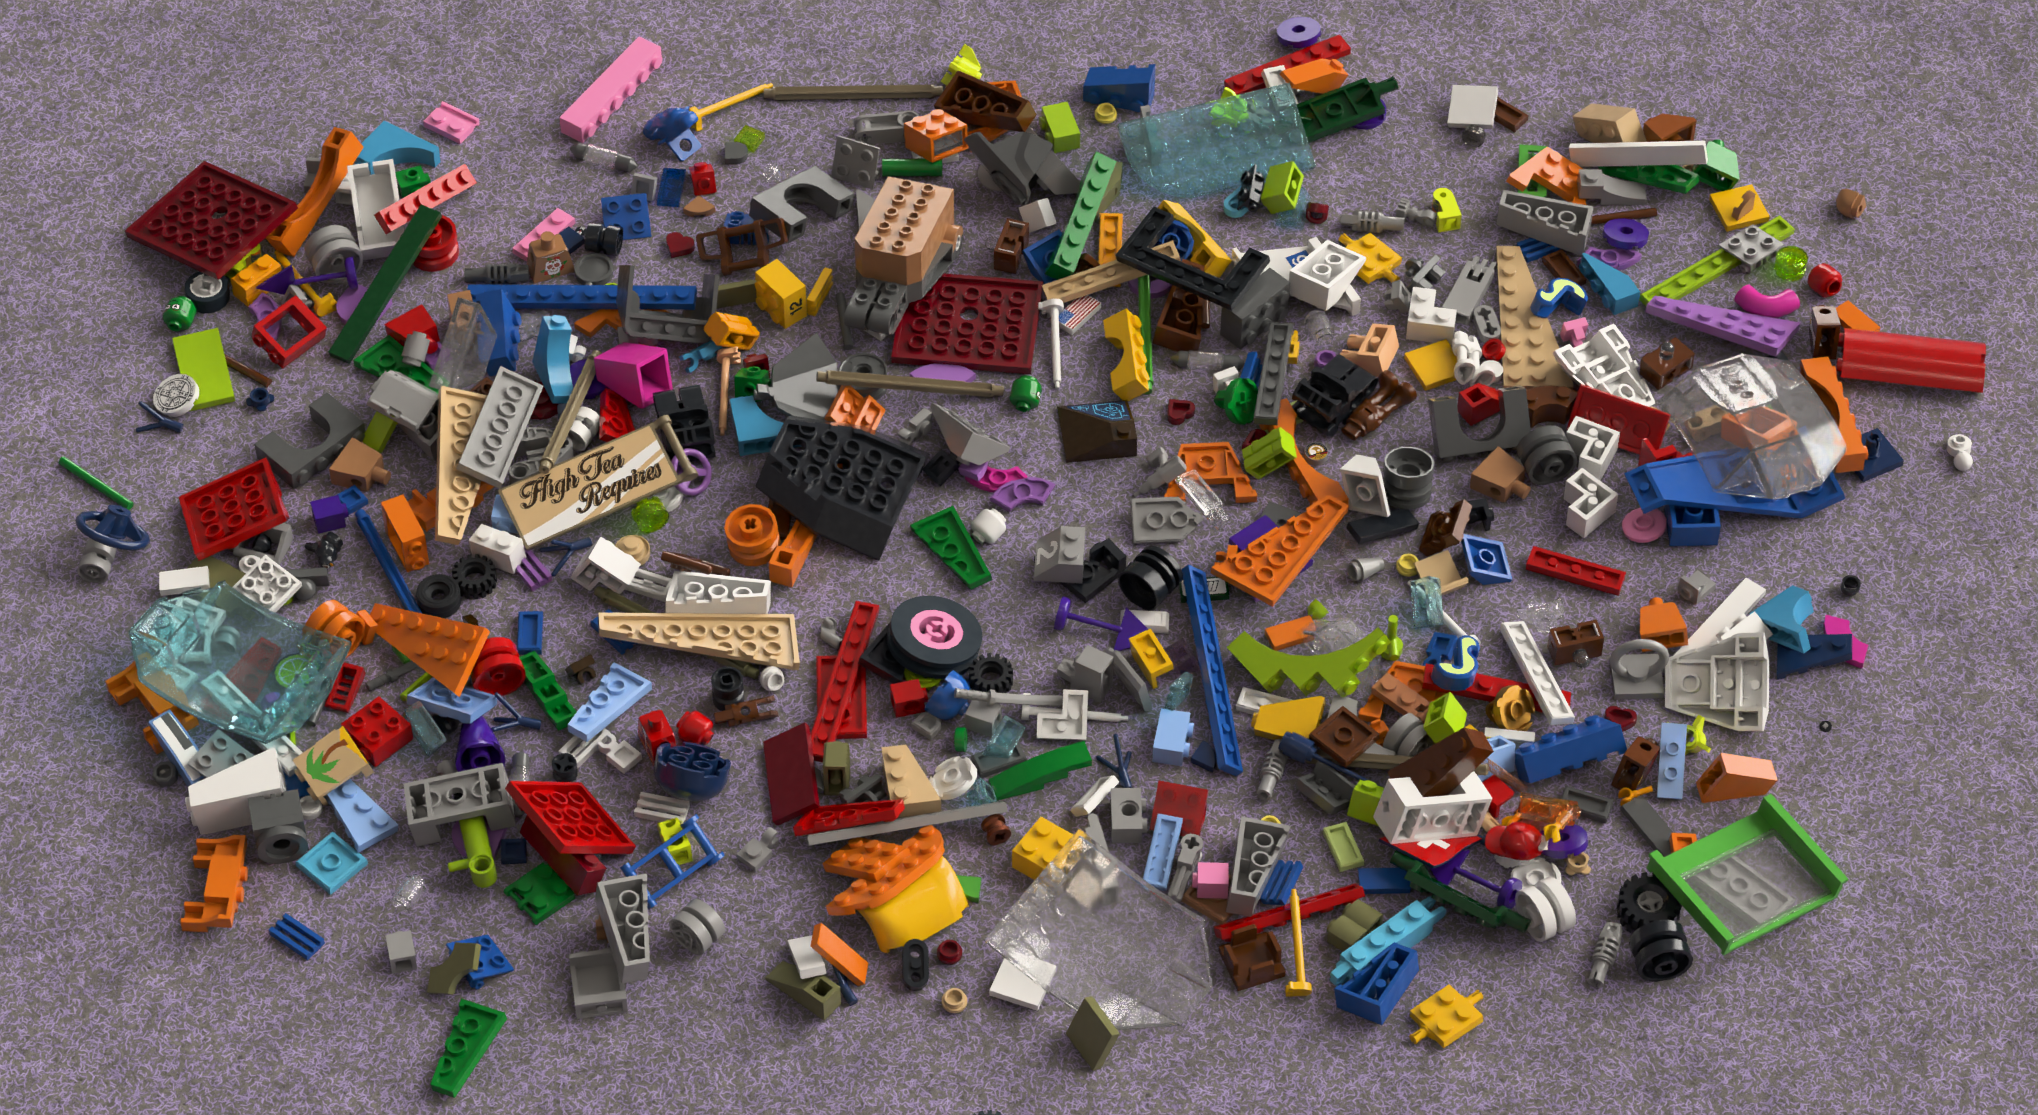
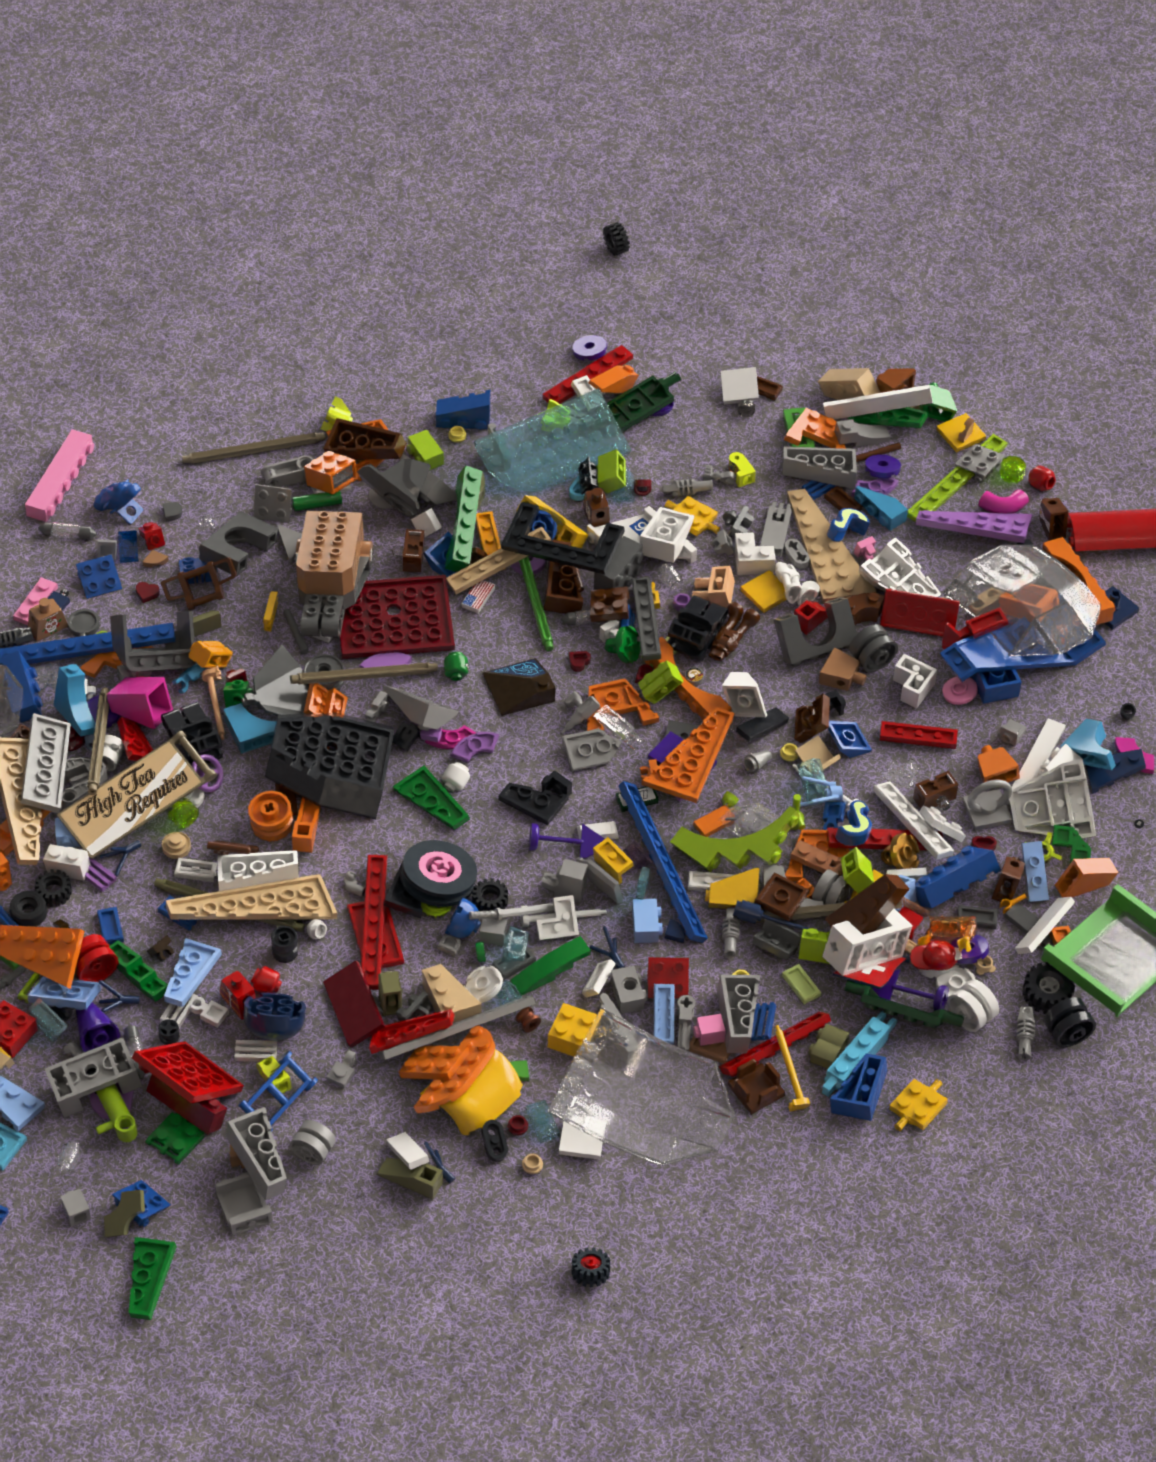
camera: 15 degrees left, 0 degrees up
(513, 851) = (144, 1107): dark blue tile -> none
(602, 238) = (86, 596): black wheel -> none
(605, 565) = (160, 860): white brick -> none
(726, 103) = (157, 470): yellow piece -> none
(733, 712) = (295, 965): reddish brown hinge -> none
(750, 137) = (181, 496): clear neon green tile -> none
(780, 294) = (241, 618): yellow brick -> none
(839, 954) = (434, 1143): orange tile -> none
(908, 698) = (429, 925): red brick -> none
(980, 954) = (542, 1121): none -> clear light blue plate
(1053, 308) = (459, 594): white piece -> none
(1060, 555) = (521, 790): light grey slope -> none
(1092, 1033) = (651, 1170): olive tile -> none
(1130, 375) = (535, 639): yellow arch -> none
(1150, 578) = (595, 796): black wheel -> none
(1231, 348) = (609, 604): none -> reddish brown brick
(1250, 222) = (595, 503): none -> reddish brown torso
(1383, 880) = (841, 1005): blue tile -> none
(1408, 477) = (774, 682): dark grey wheel -> none
(1444, 624) = (832, 793): none -> light blue plant
(1493, 350) = (808, 572): red tile -> none
(1565, 678) = (939, 822): none -> white plate
(1593, 444) = (906, 633): white brick -> none
(1665, 828) = (1044, 925): none -> white tile
(1666, 363) = (941, 561): reddish brown piece -> none
(1693, 446) = (987, 622): none -> red tile
(1729, 727) = (1069, 837): none -> green tile
(1850, 203) = (1043, 416): medium nougat piece -> none
(1853, 318) = (1073, 504): orange tile -> none

